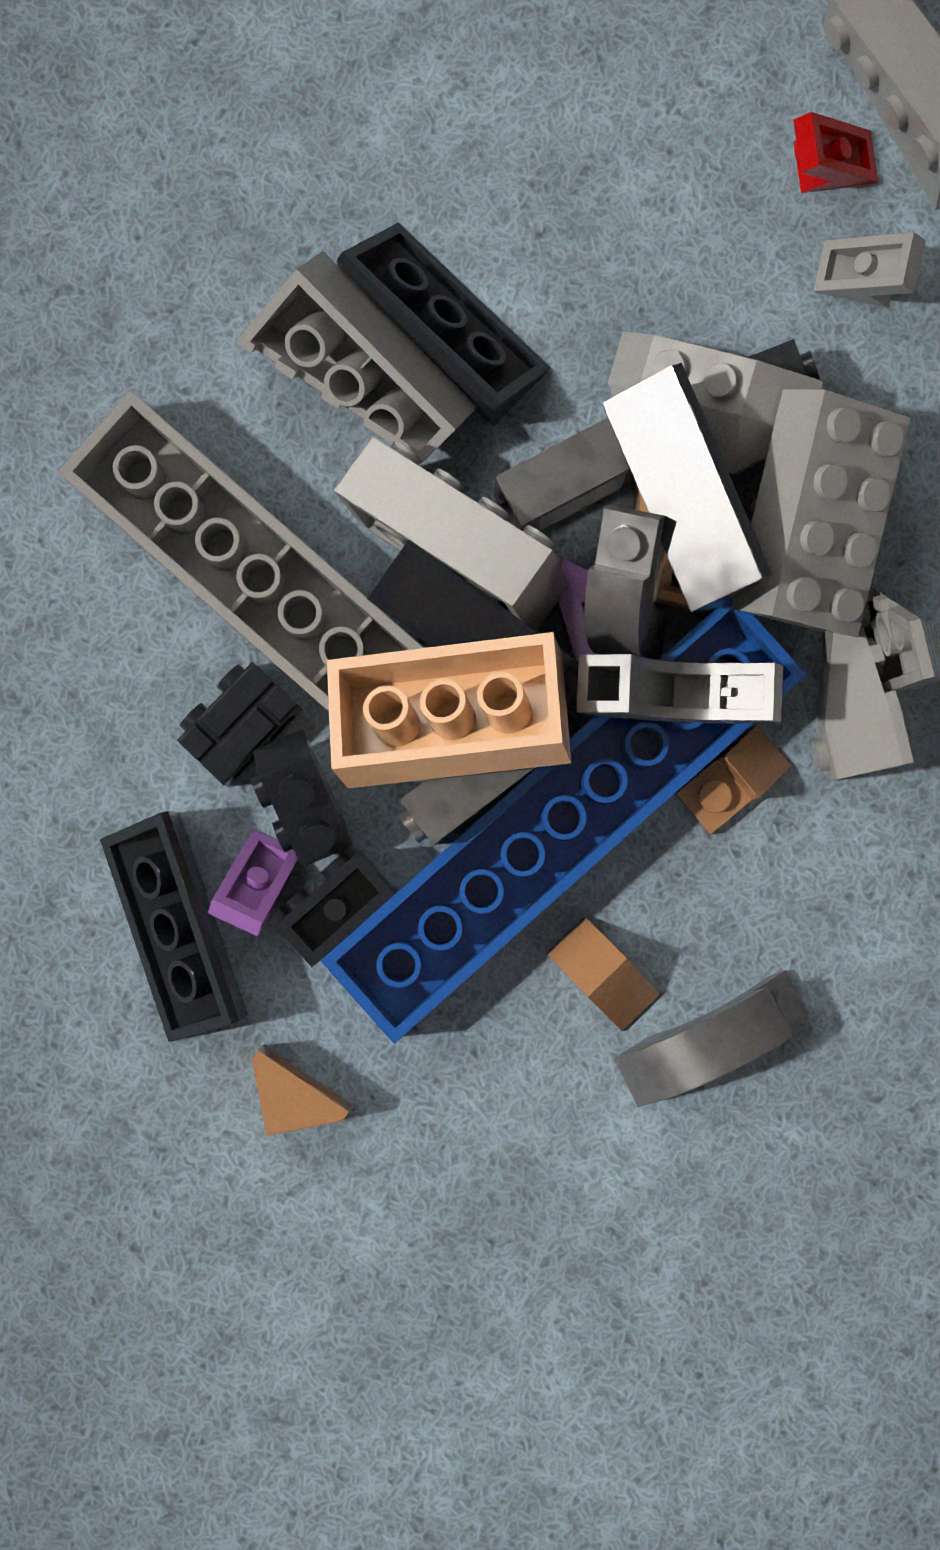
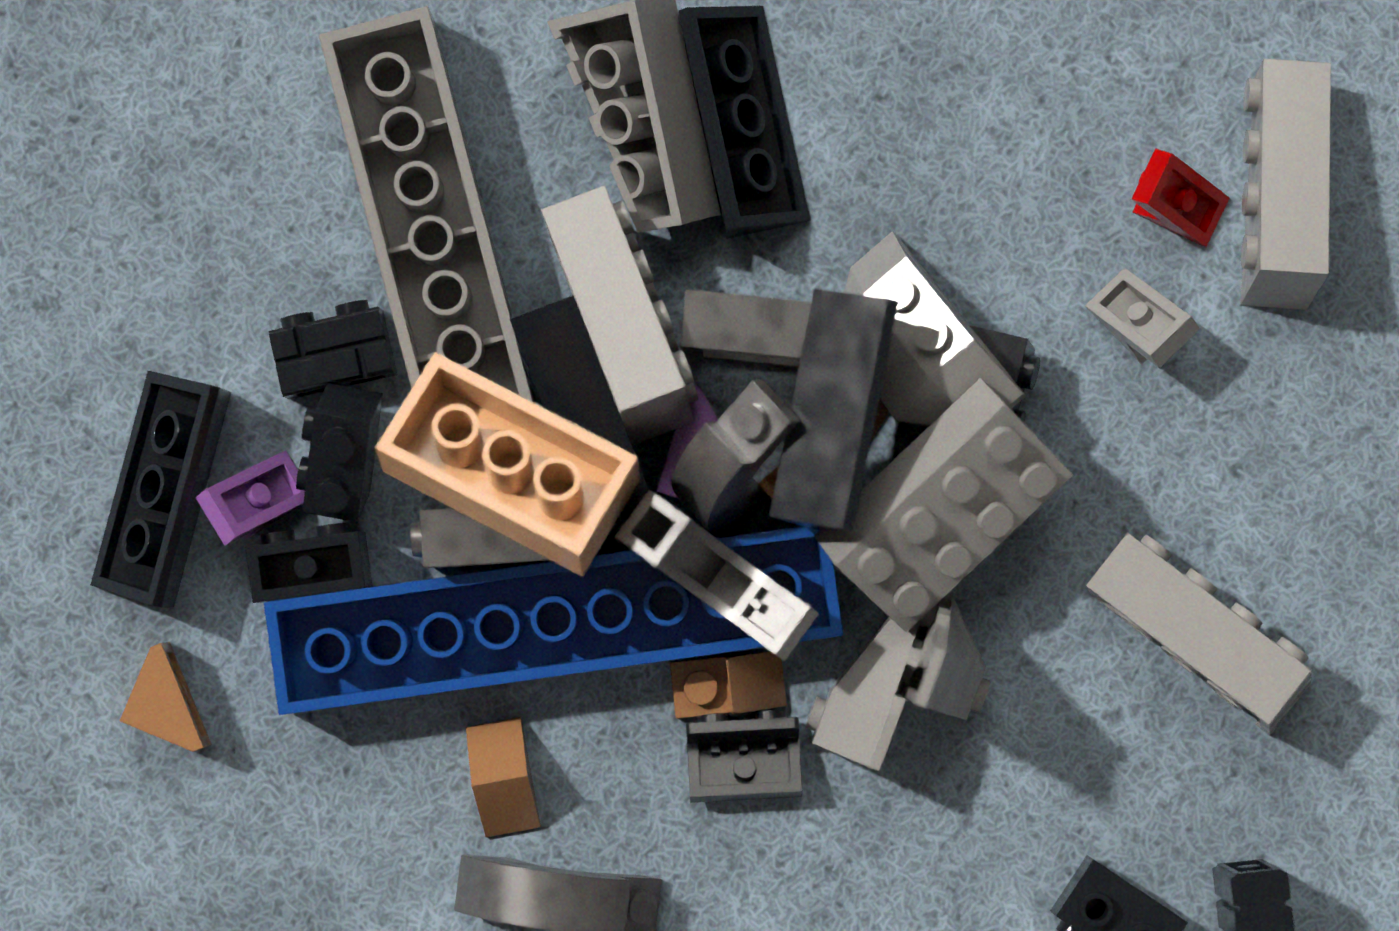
camera: 40 degrees right, 0 degrees up
(787, 829) = (744, 757): none -> bracket

